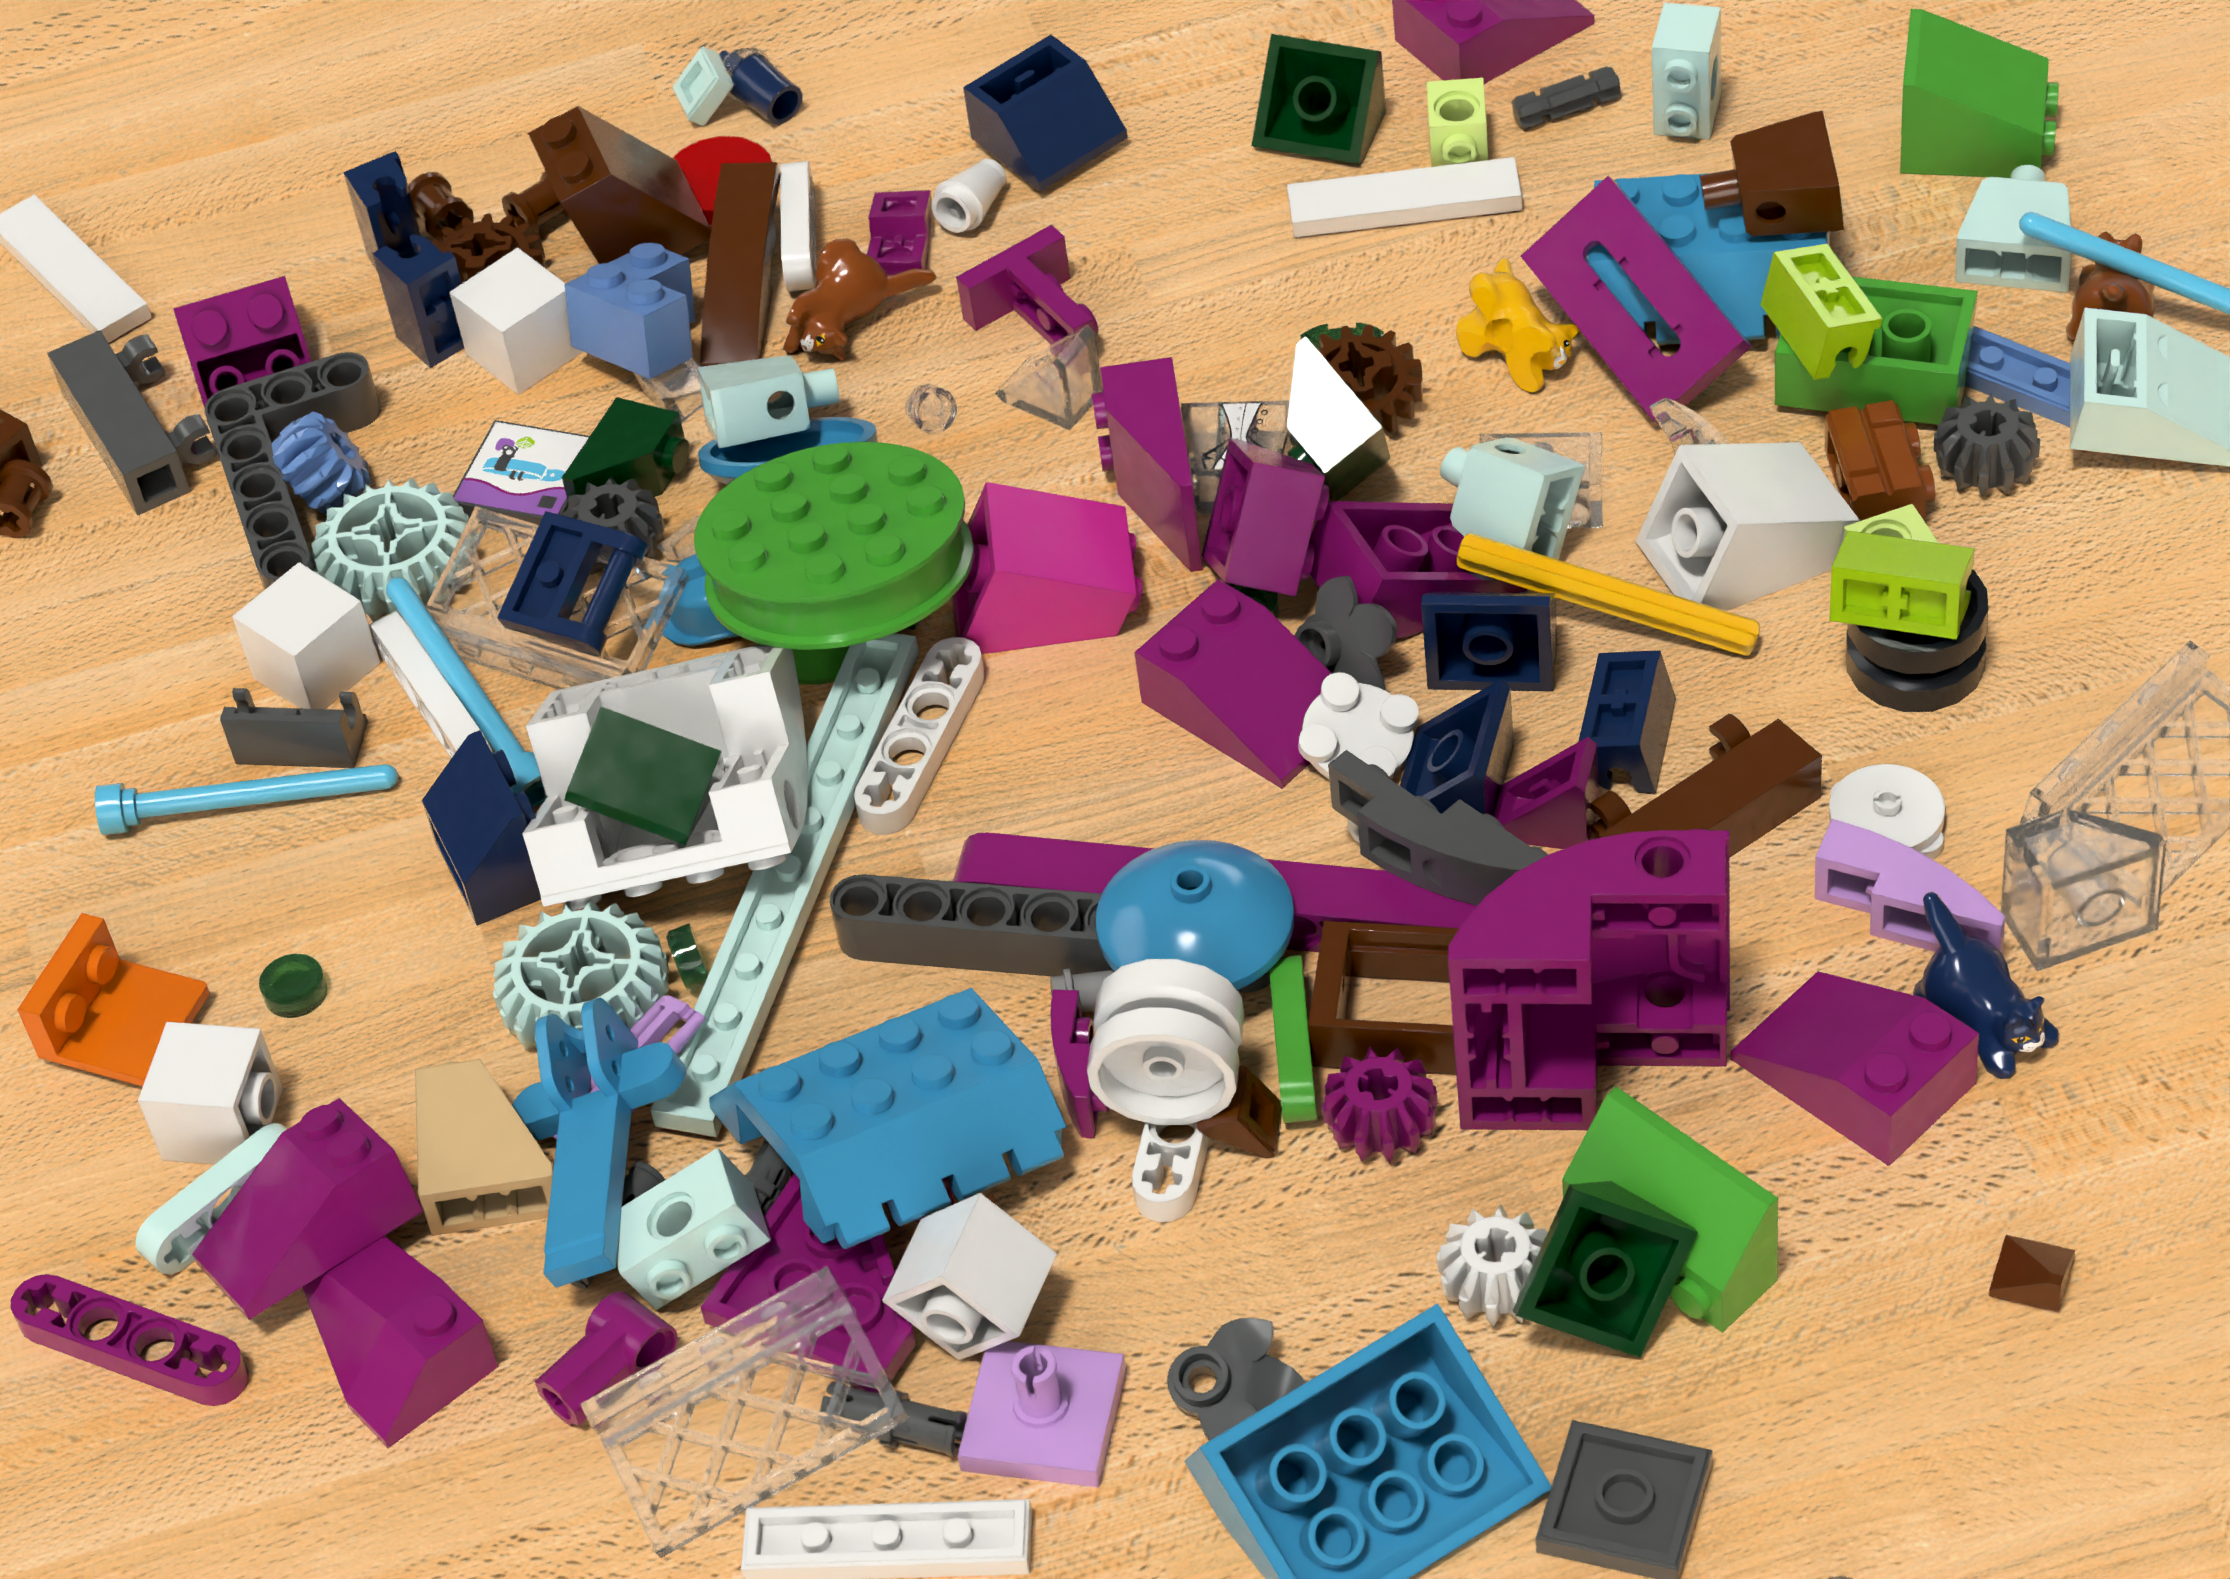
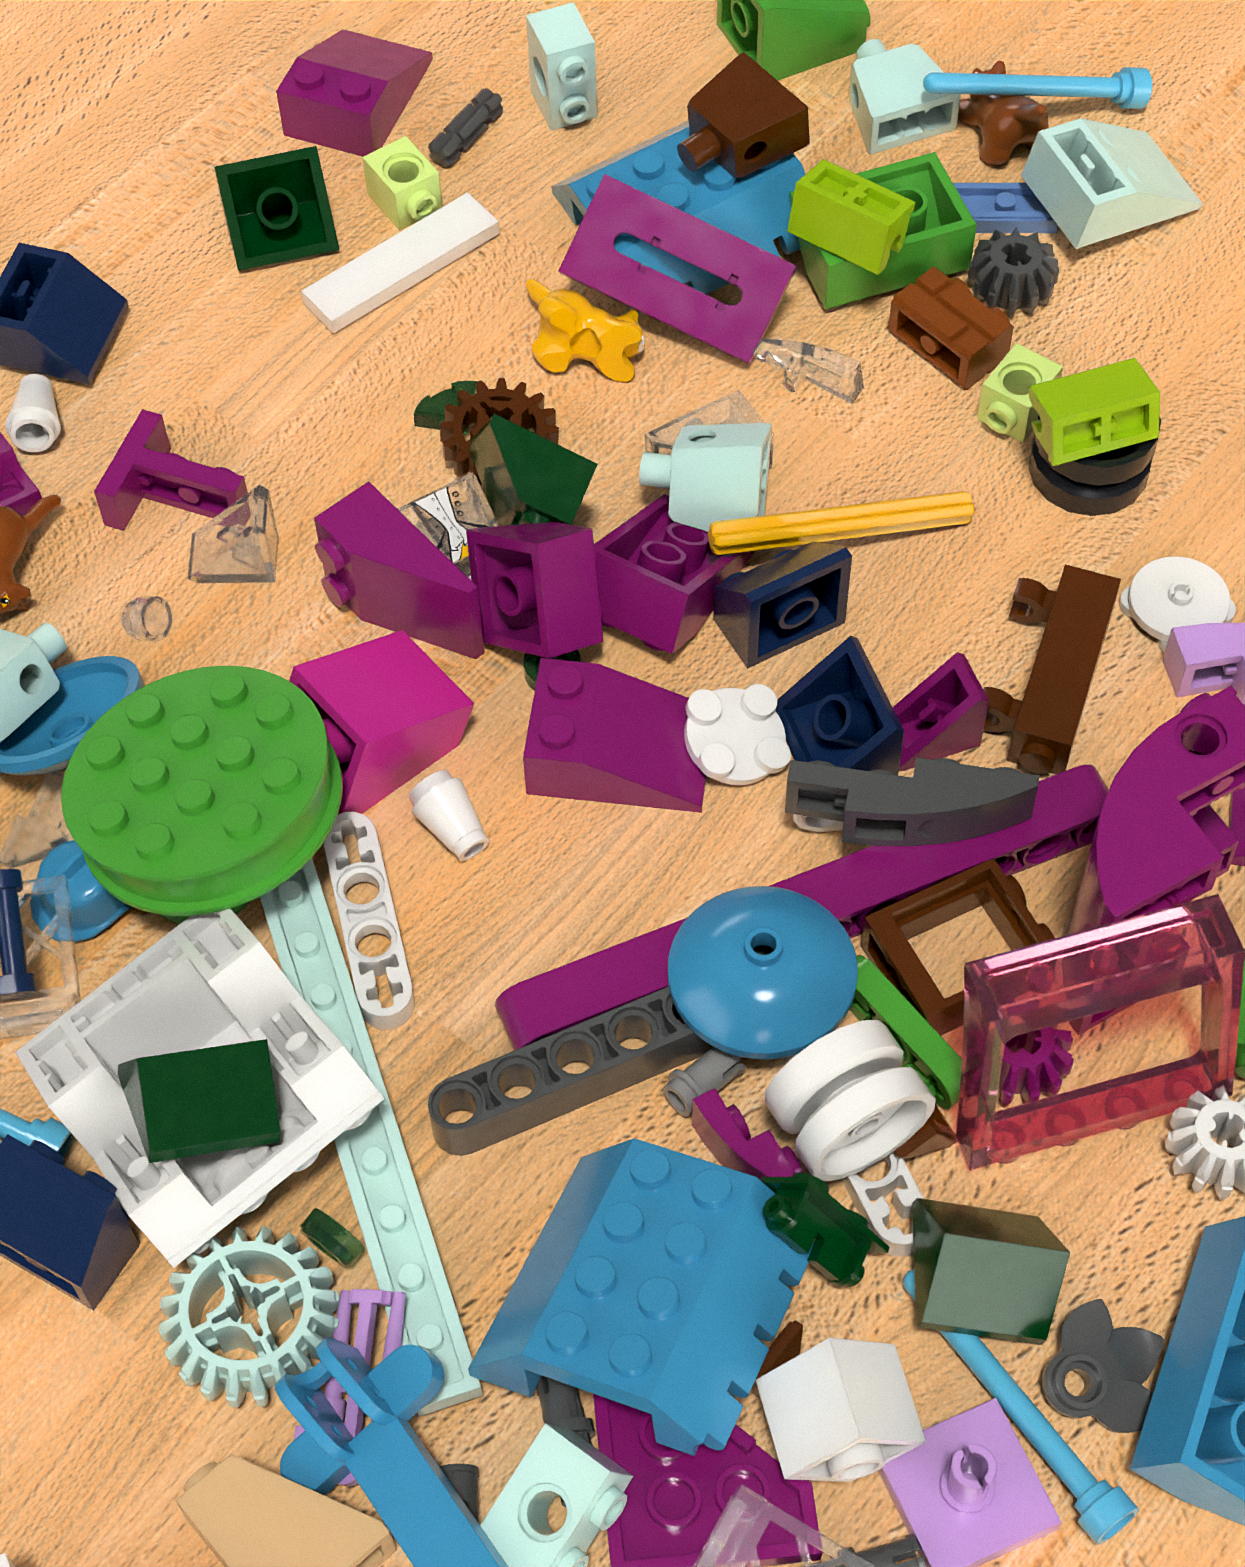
camera: 40 degrees left, 10 degrees up
(1052, 680) = (448, 813): none -> white cone
(1063, 1111) = (807, 1211): none -> dark green hinge
(1139, 1481) = (1101, 1507): none -> medium azure piece
(1190, 1251) = (985, 1271): none -> slope
(1348, 634) = (676, 649): dark grey plate -> none
(1428, 1010) = (1085, 977): none -> clear pink windscreen
(1629, 716) = (939, 613): dark blue hinge -> none
(1743, 522) = (894, 417): white slope -> none

